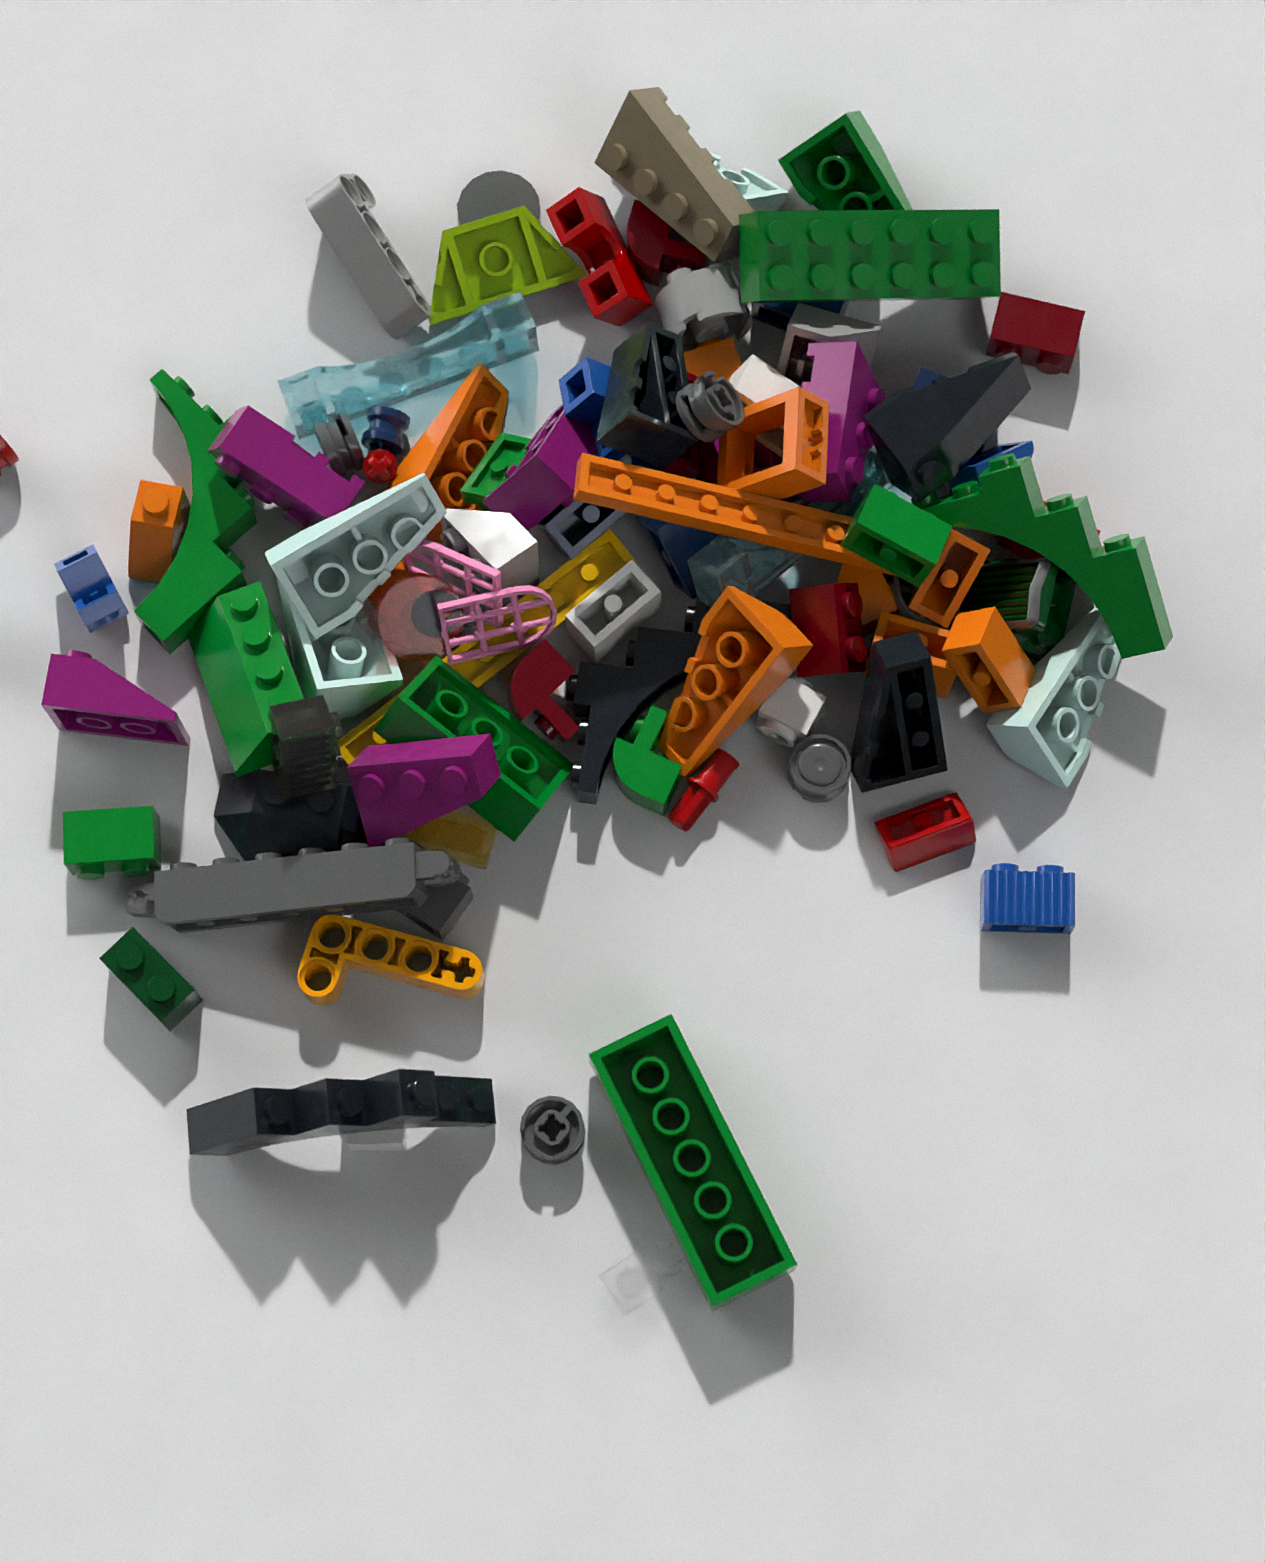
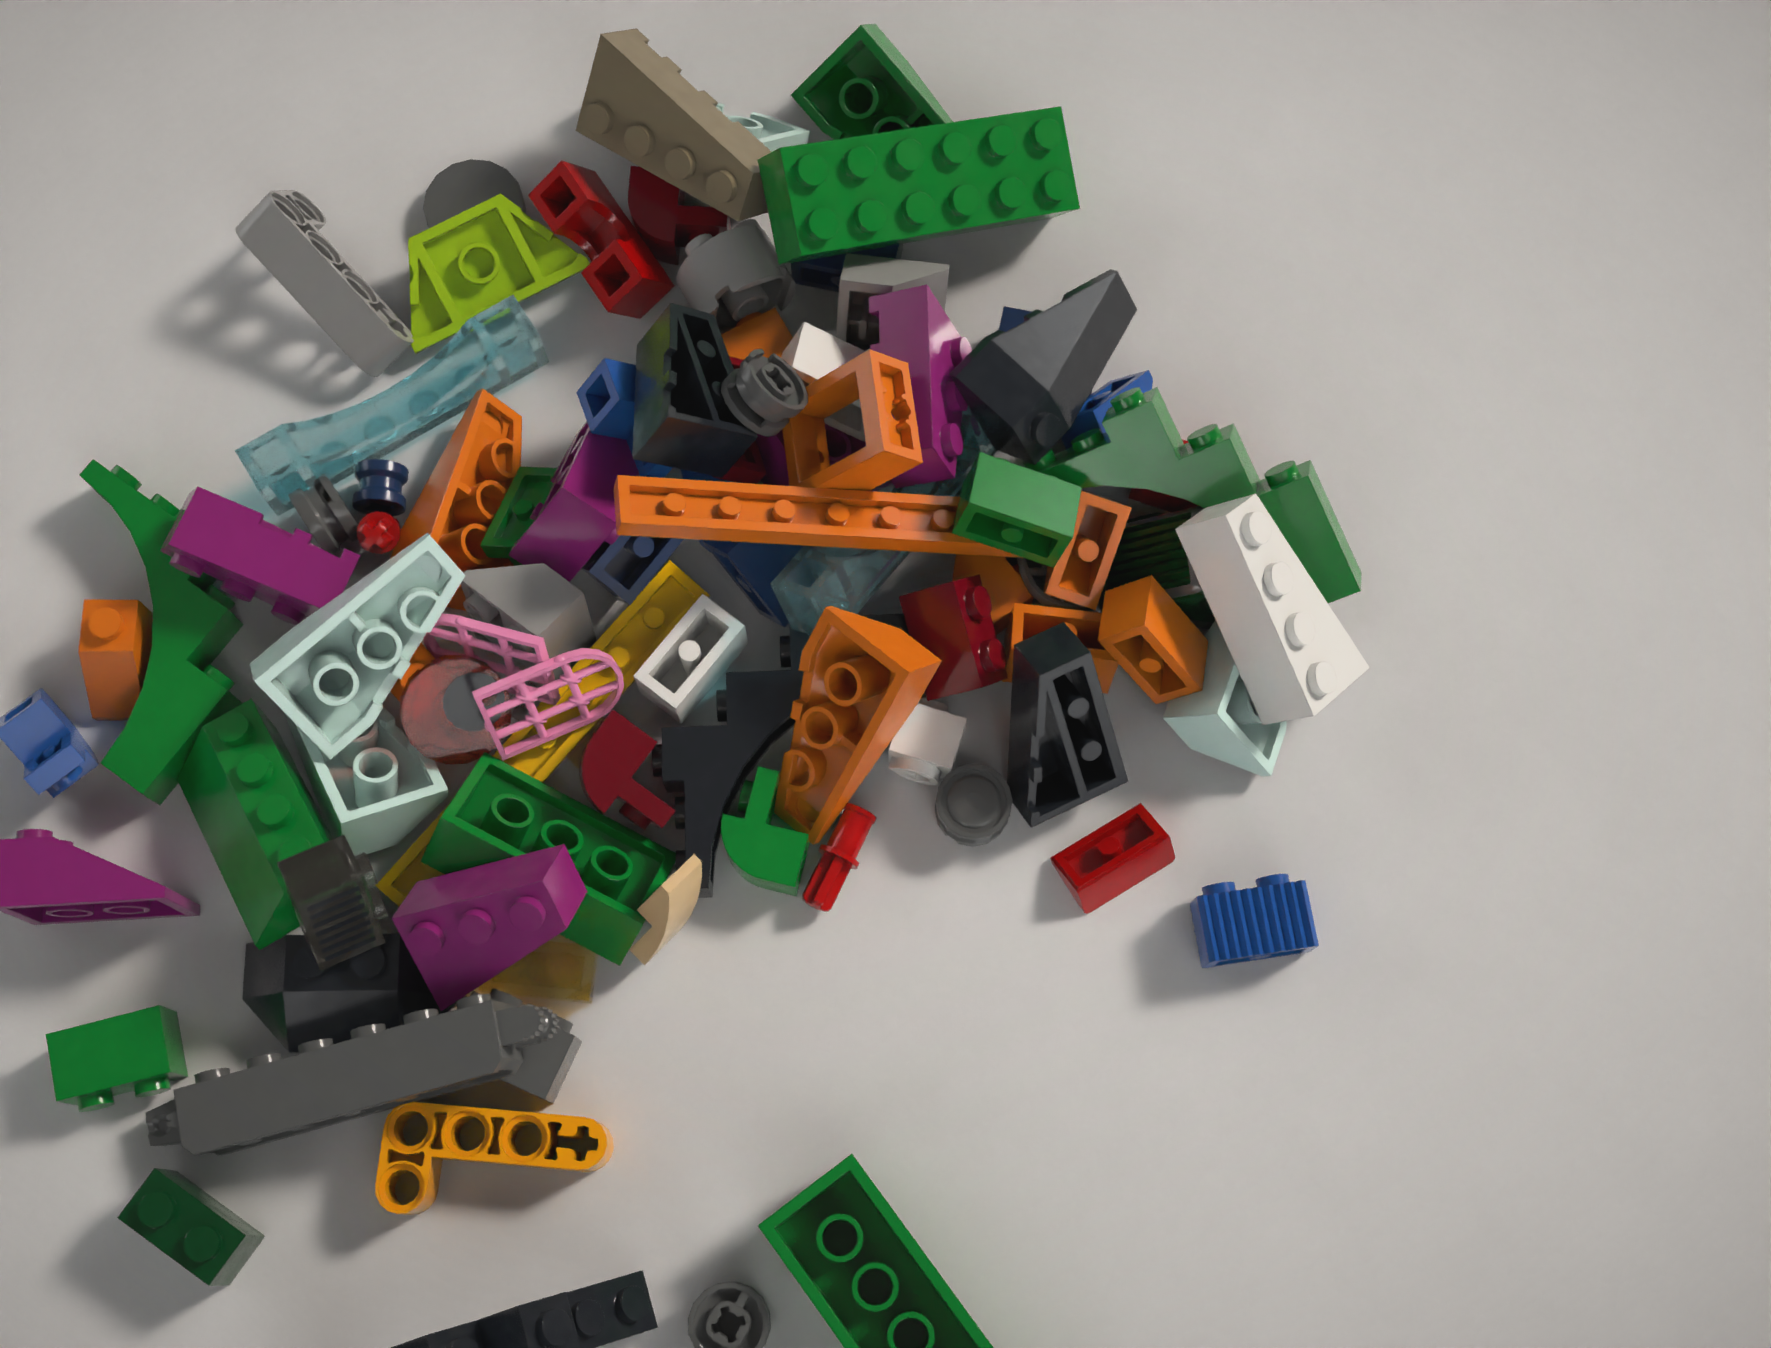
camera: 15 degrees left, 0 degrees up
(561, 803) = (669, 909): none -> tan slope
(1037, 331) = (1127, 239): dark red brick -> none
(1086, 652) = (1269, 611): none -> white wedge

